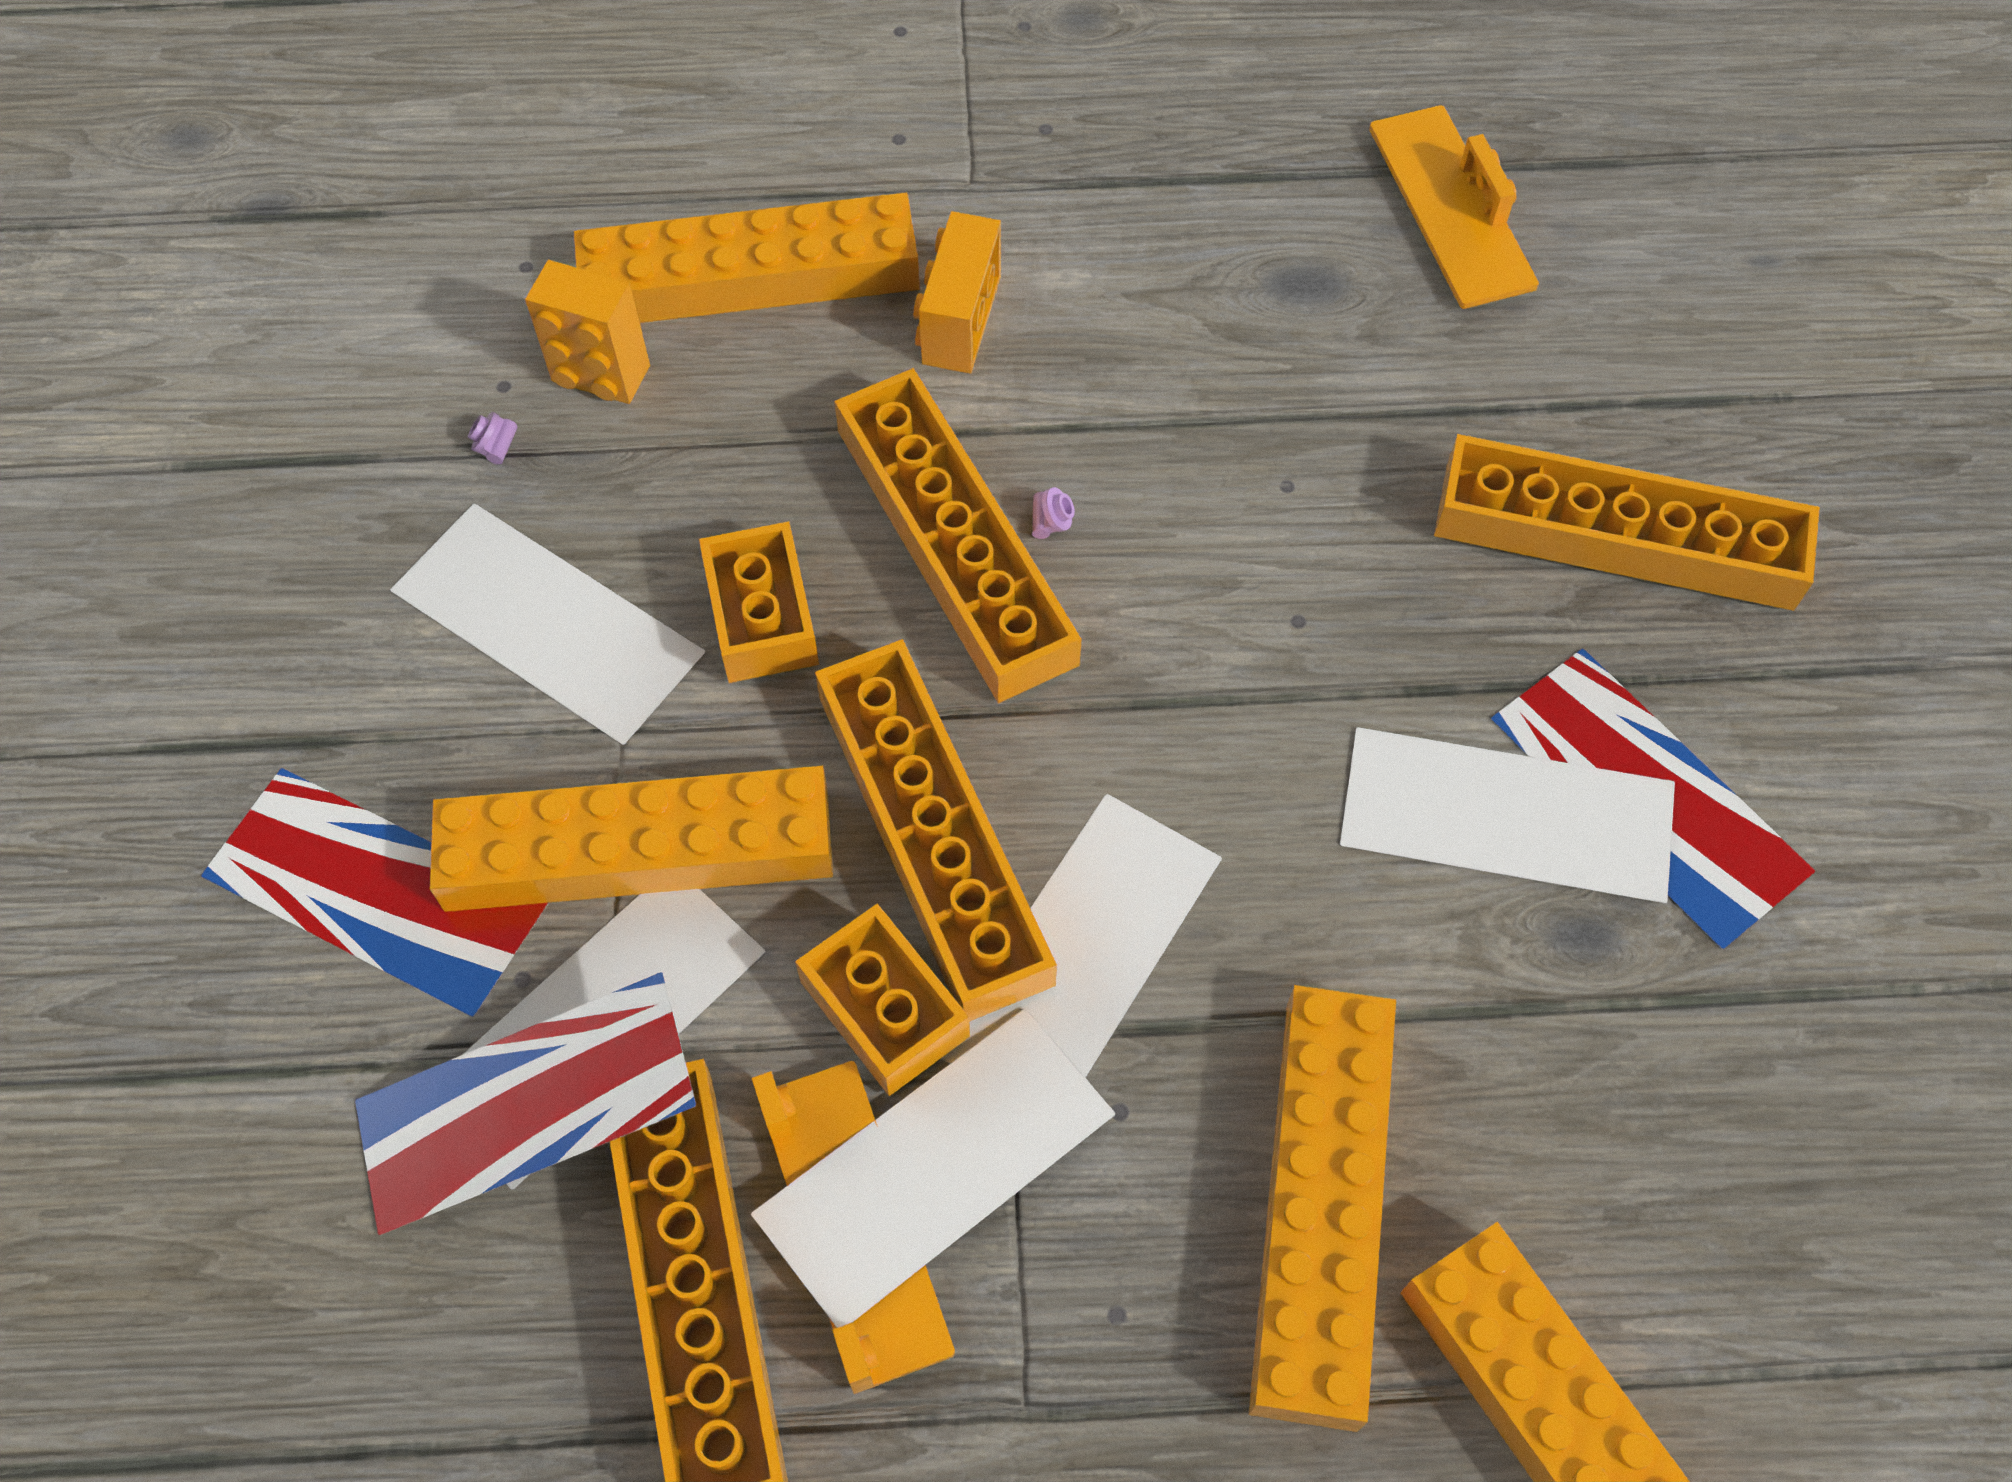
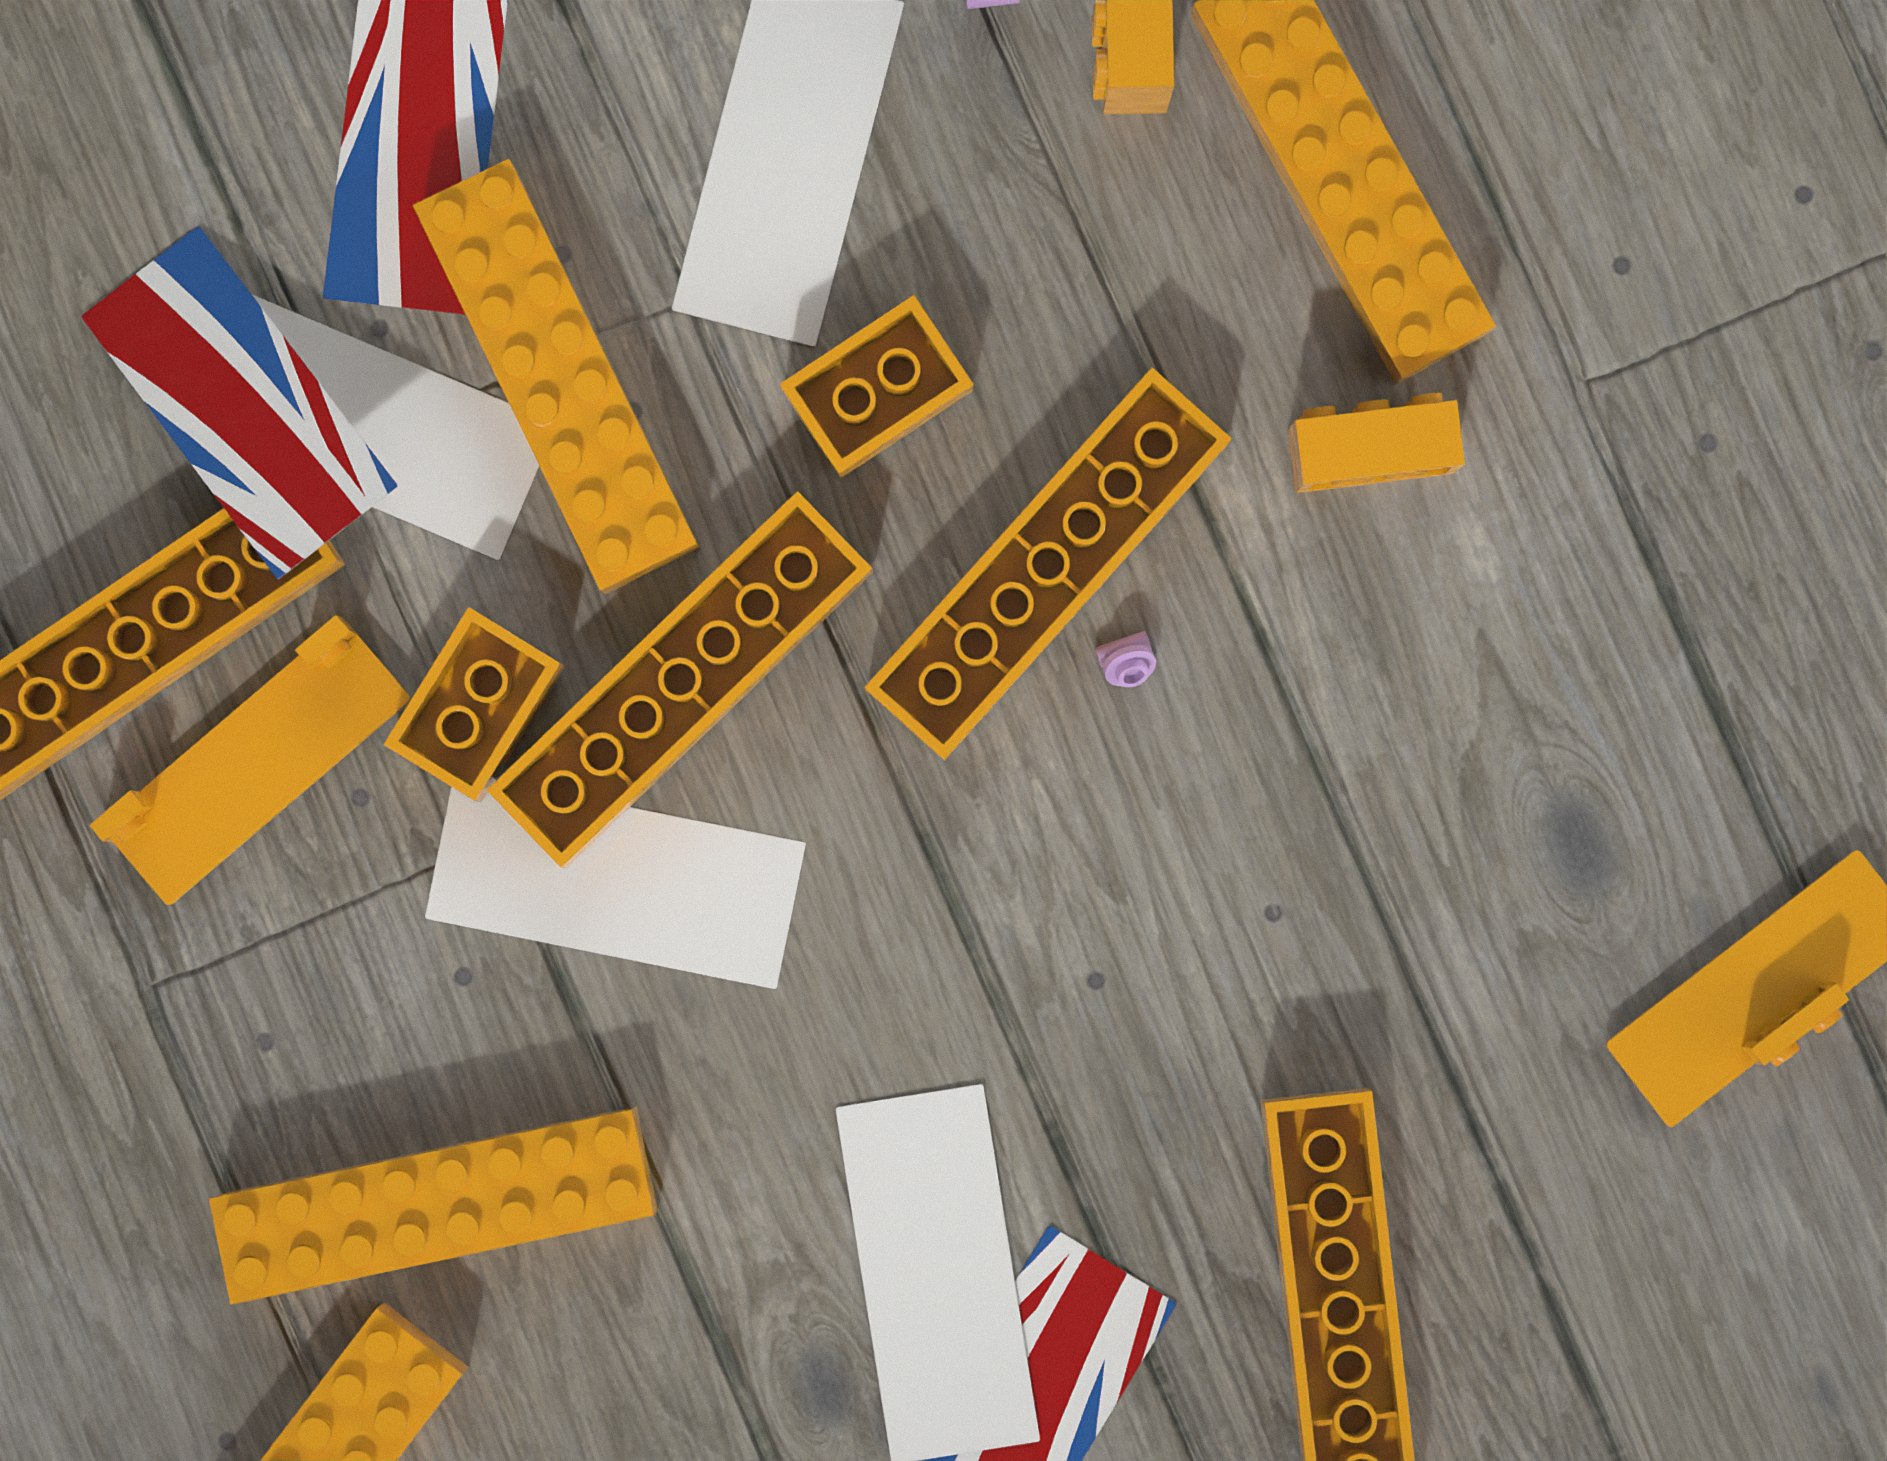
camera: 75 degrees right, 25 degrees up
(931, 1168) = (339, 818): white sticker -> none

